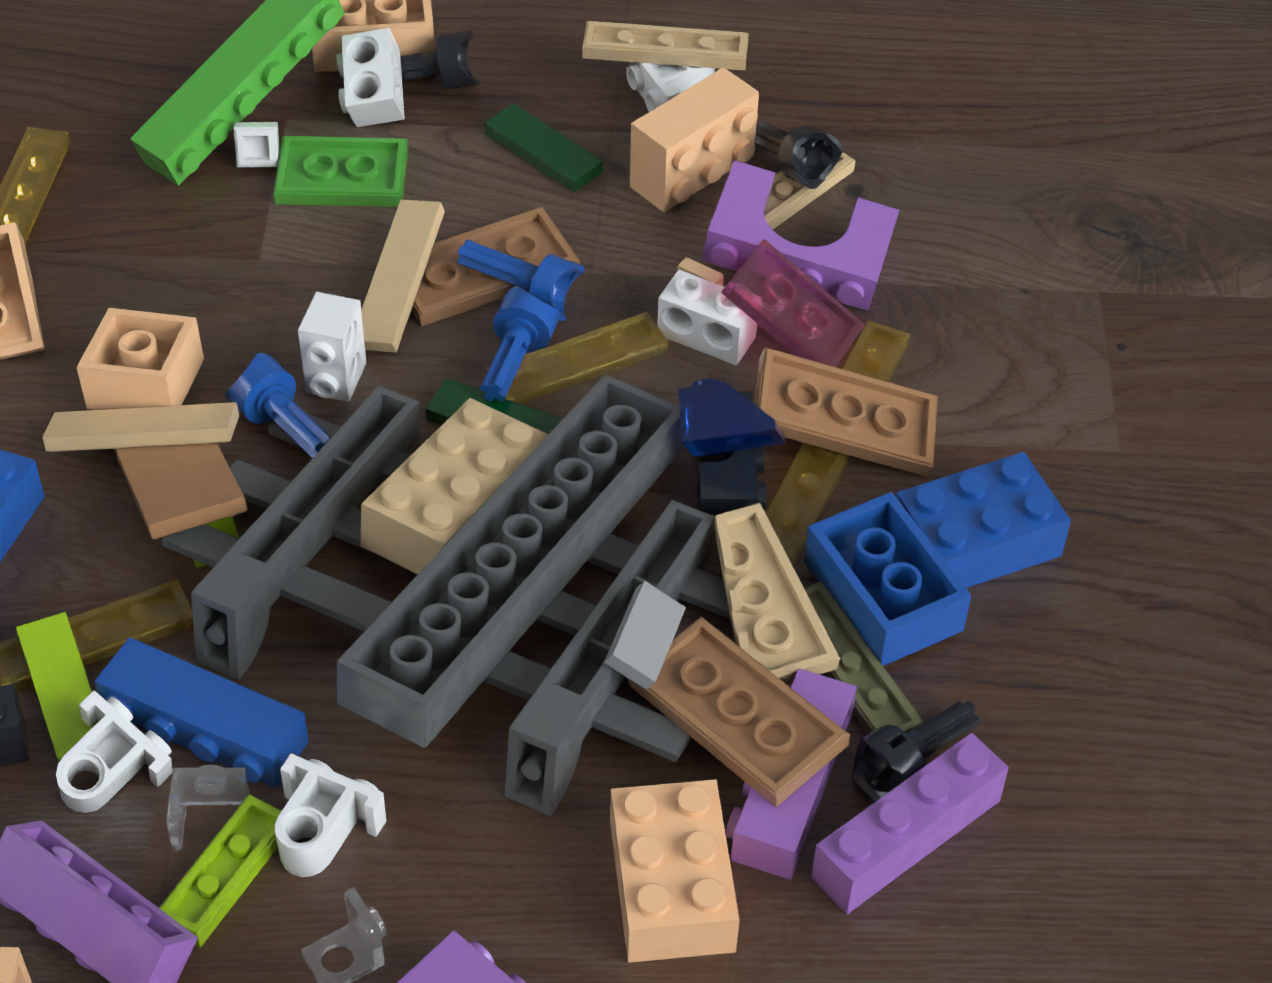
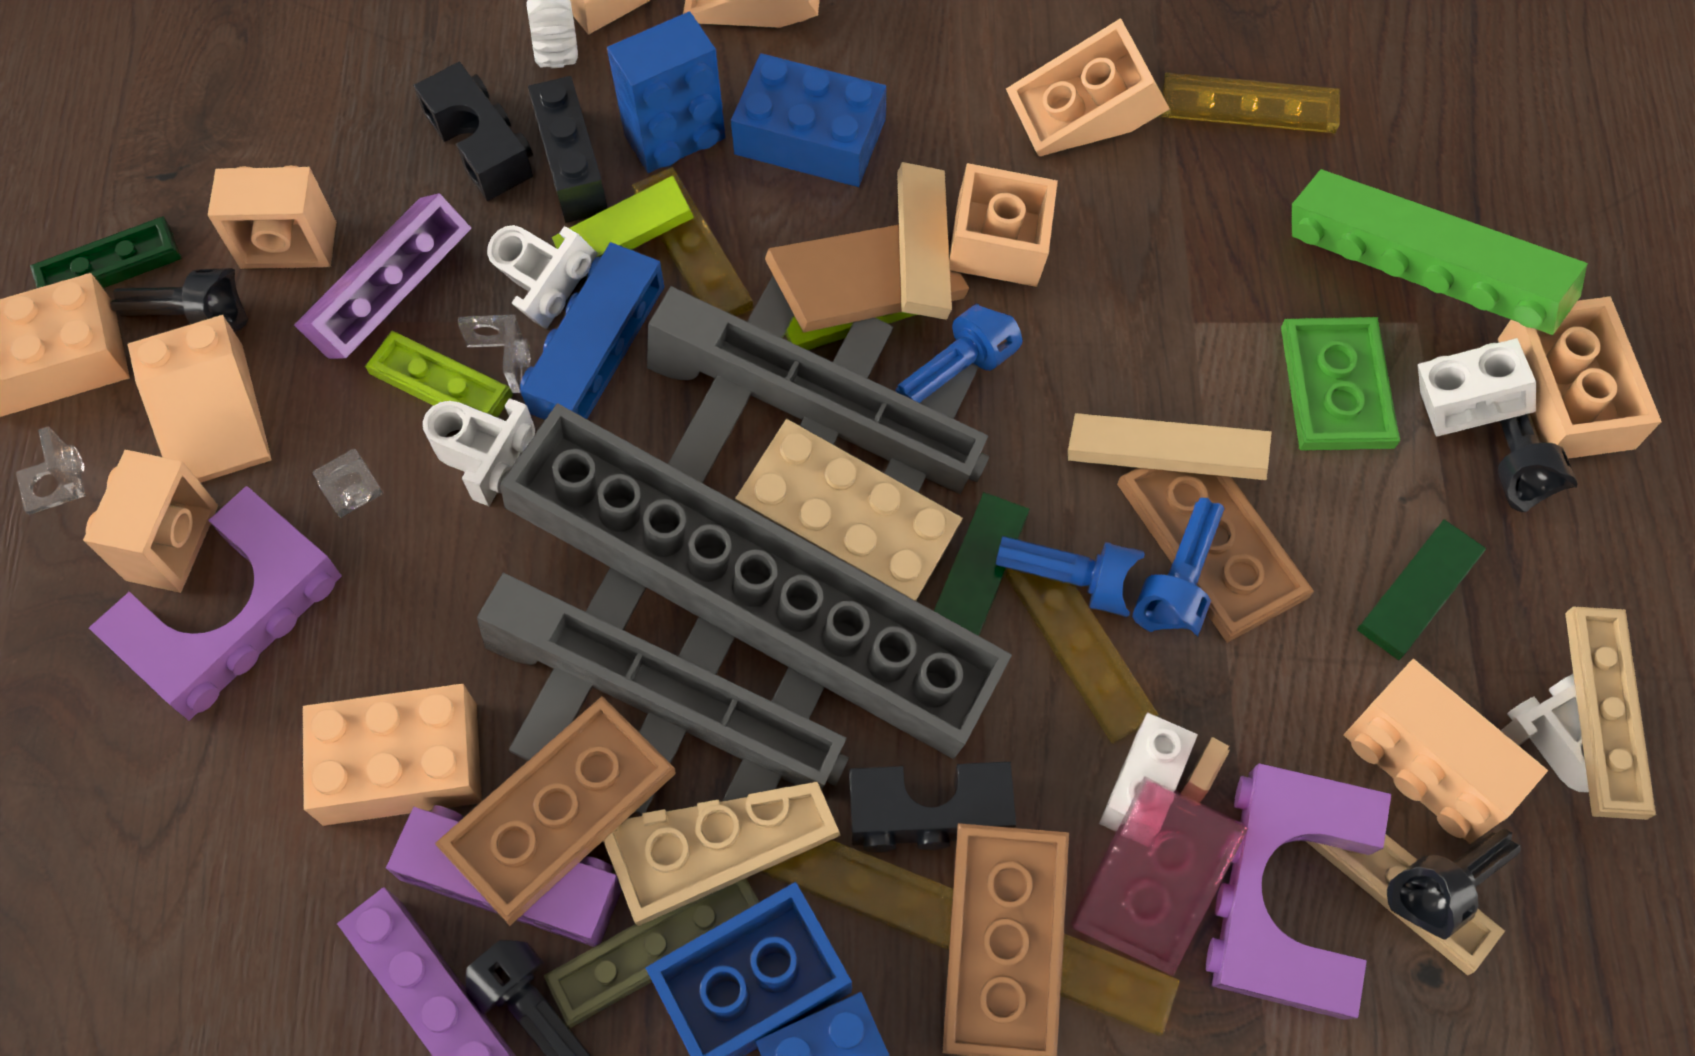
camera: 90 degrees right, 15 degrees up
(256, 144) = (1352, 290): white tile -> none
(332, 346) = (1036, 386): white brick -> none
(645, 635) = (630, 703): light grey tile -> none
(723, 420) = (942, 784): clear blue slope -> none

